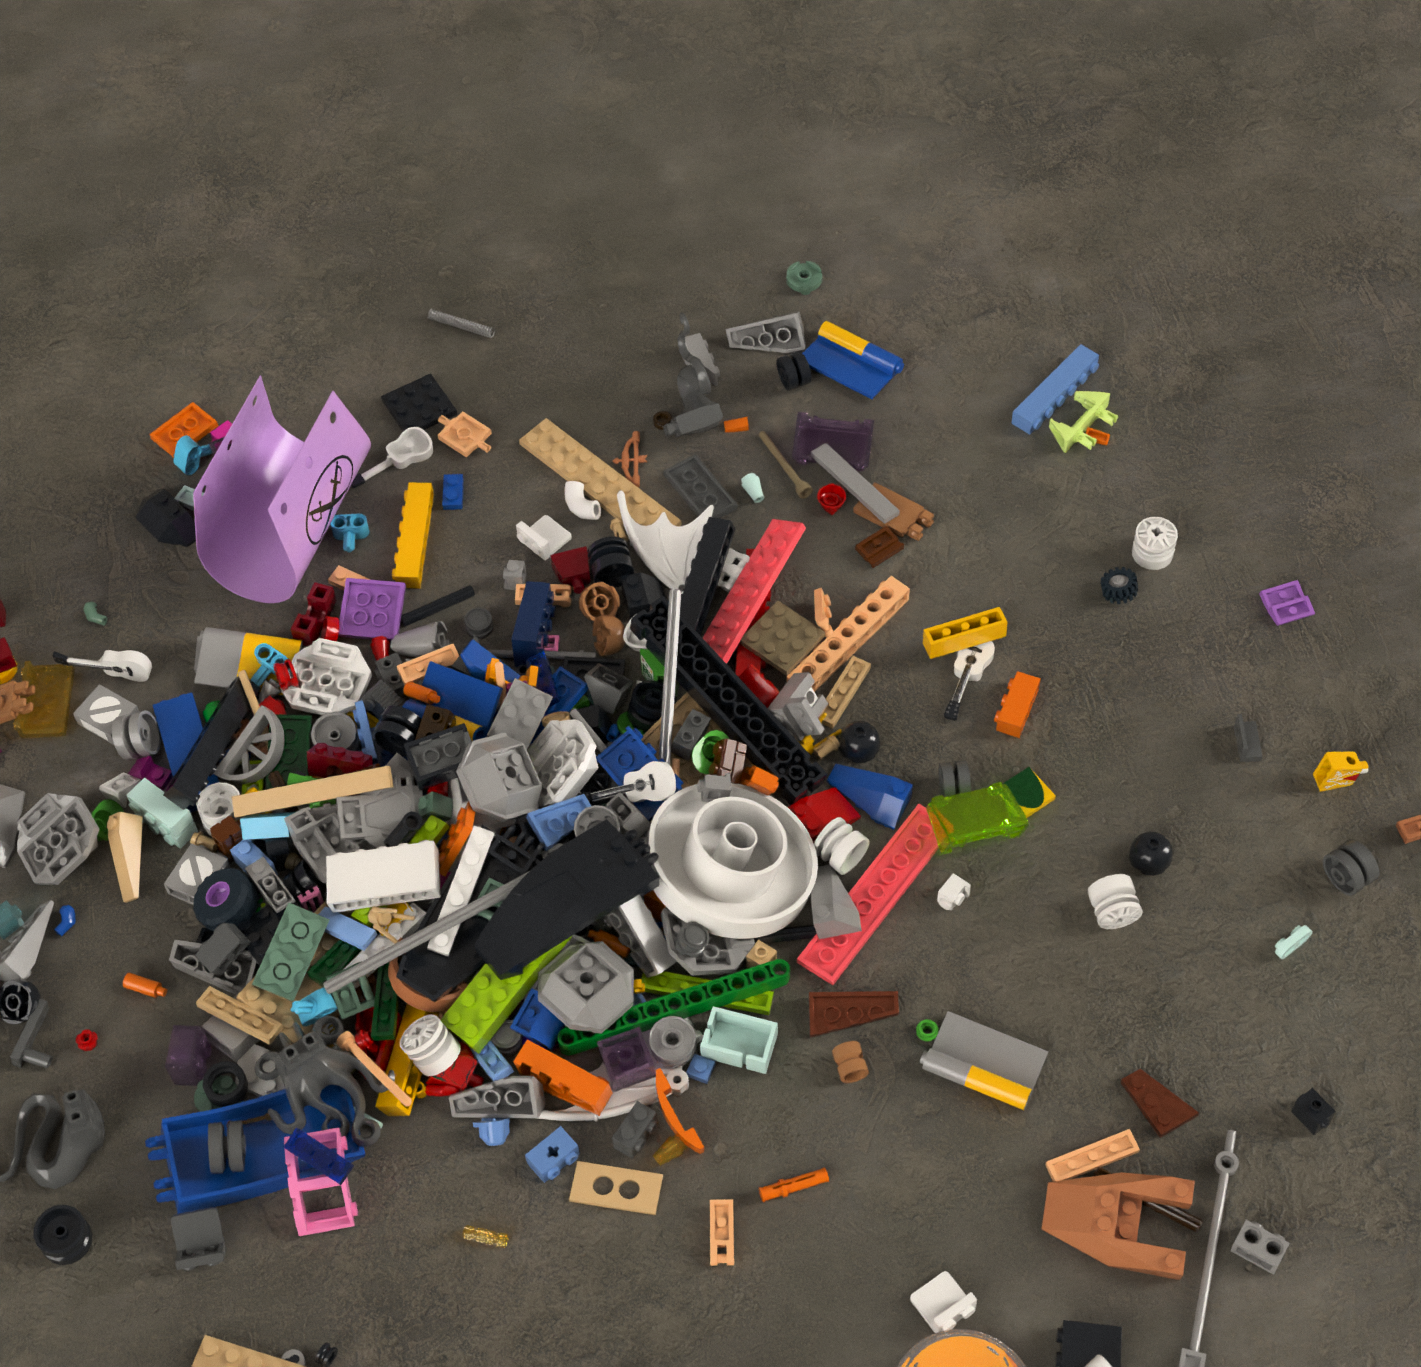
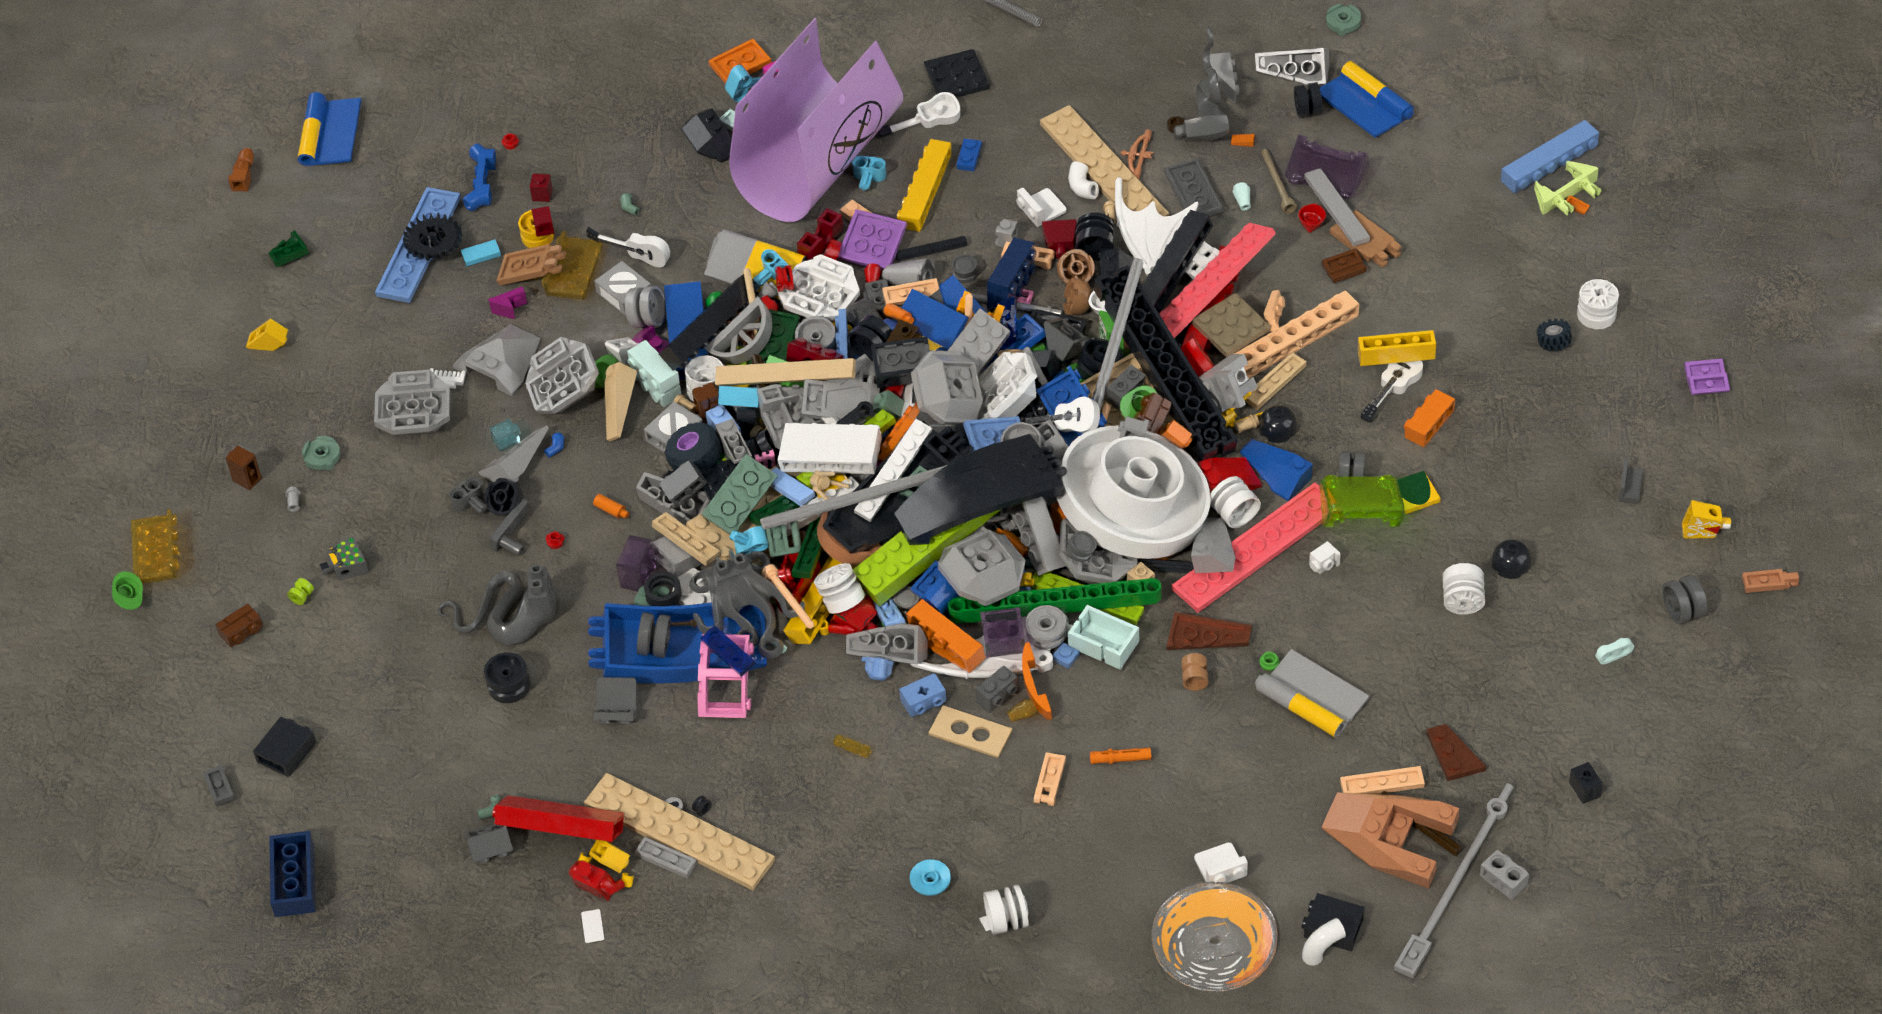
camera: 15 degrees right, 5 degrees down
(464, 434) = (991, 106): light nougat plate -> none

